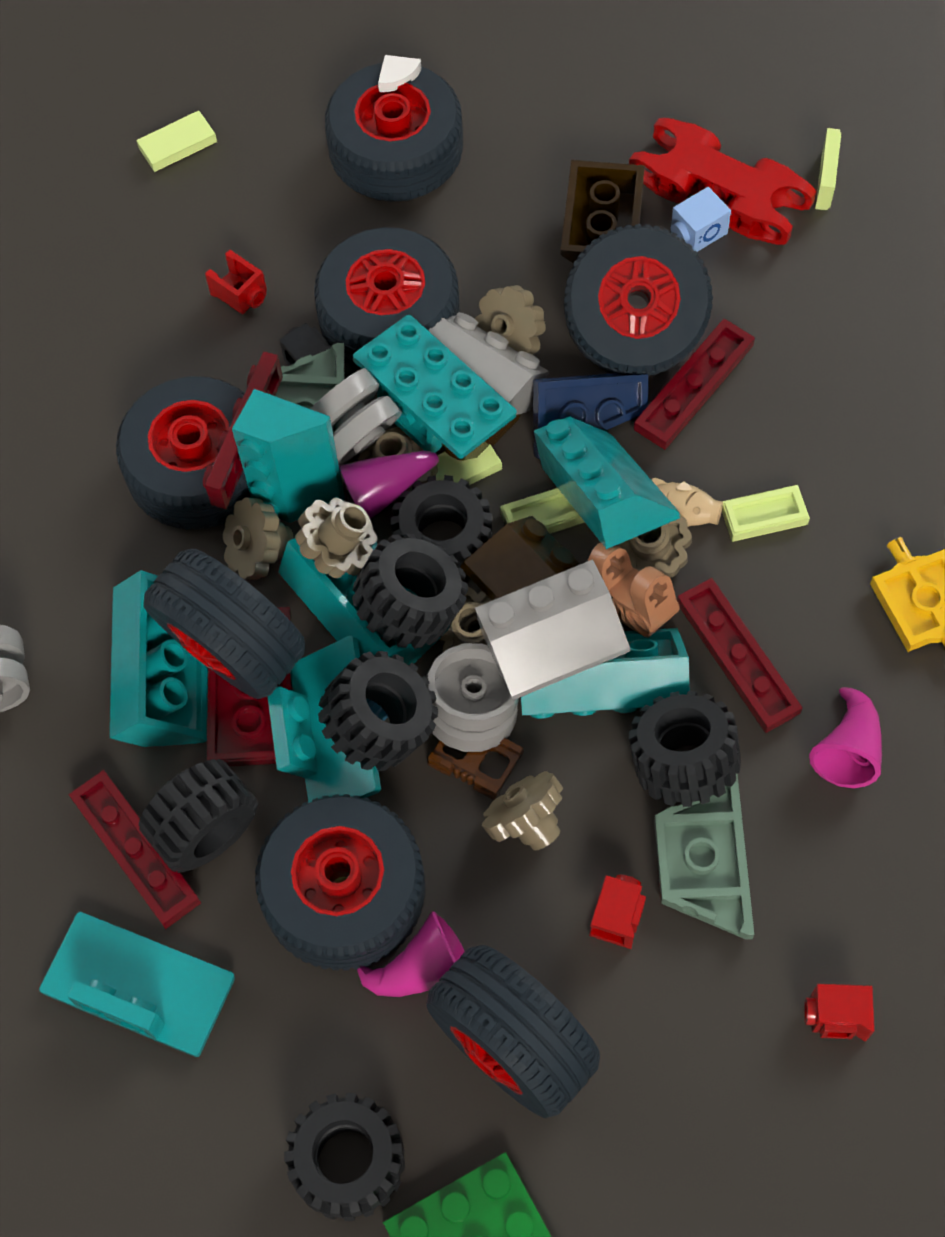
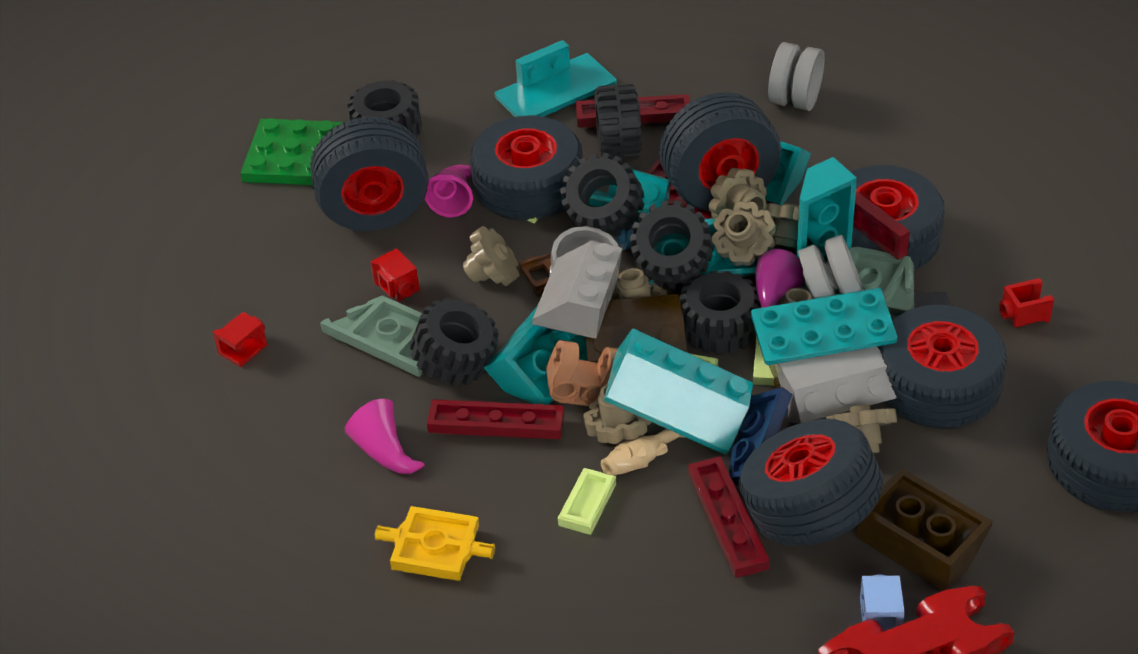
camera: 125 degrees right, 20 degrees down
(274, 579) = (737, 187): none -> dark tan plant

